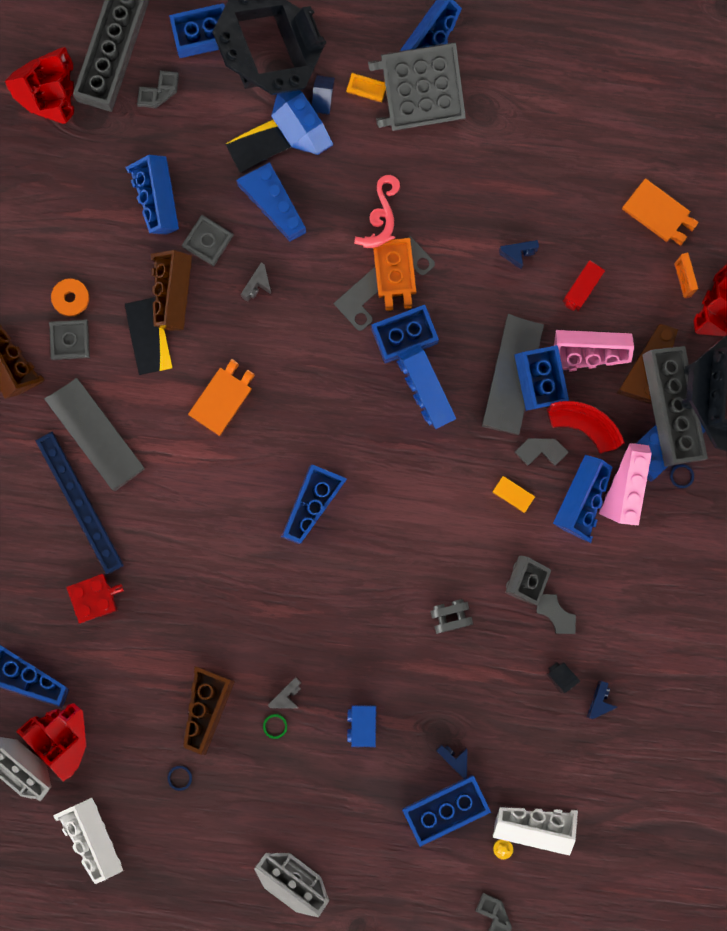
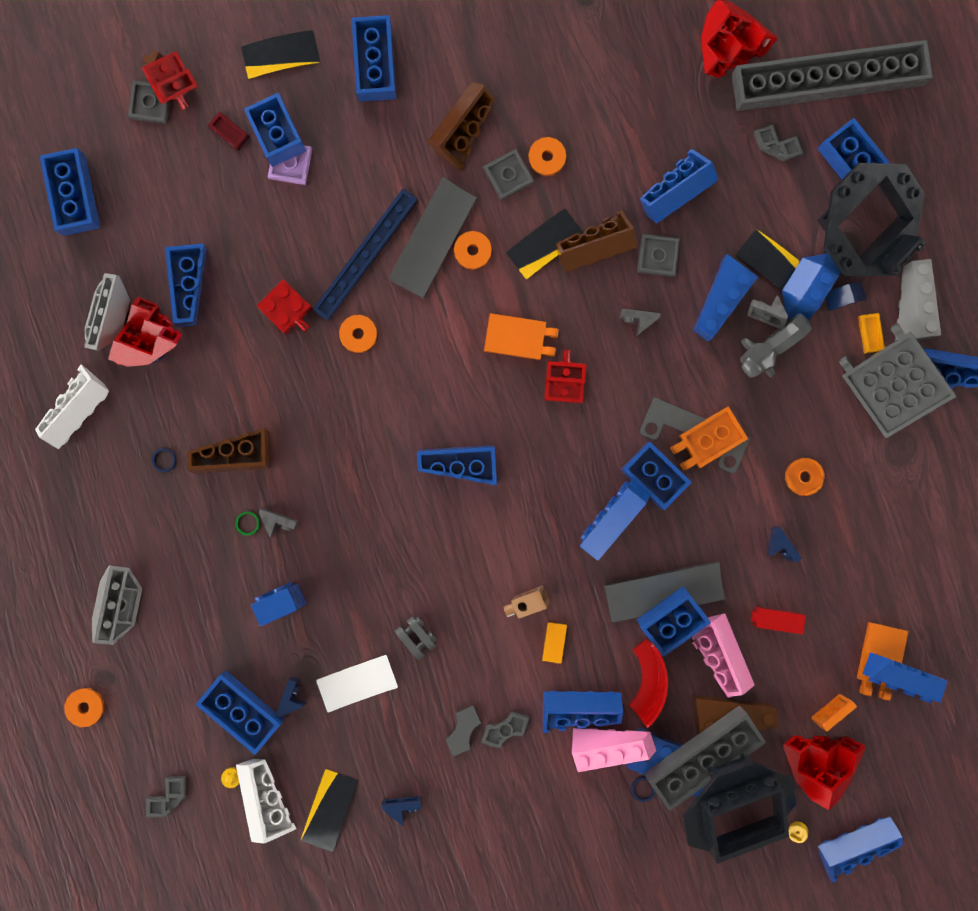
camera: 70 degrees right, 5 degrees up
(122, 392) = (469, 239): none -> orange tile
(149, 554) = (350, 325): none -> orange tile
(281, 375) = (565, 380): none -> red plate
(310, 164) = (772, 315): none -> flat silver slope
(342, 191) = (762, 356): none -> dark grey animal
(357, 34) = (918, 301): none -> light grey wedge
(386, 212) = (761, 406): coral plant -> none
(466, 492) = (535, 599): none -> medium nougat torso
(467, 193) = (815, 472): none -> orange tile
(469, 692) = (356, 683): none -> white sticker
(528, 580) = (480, 692): dark grey brick -> none
(534, 447) = (612, 655): dark grey tile -> none
(562, 677) = (406, 764): black slope -> none
(573, 585) = (497, 733): none -> dark grey tile
(574, 772) = (329, 810): none -> black sticker
(683, 199) = (905, 677): none -> blue wedge

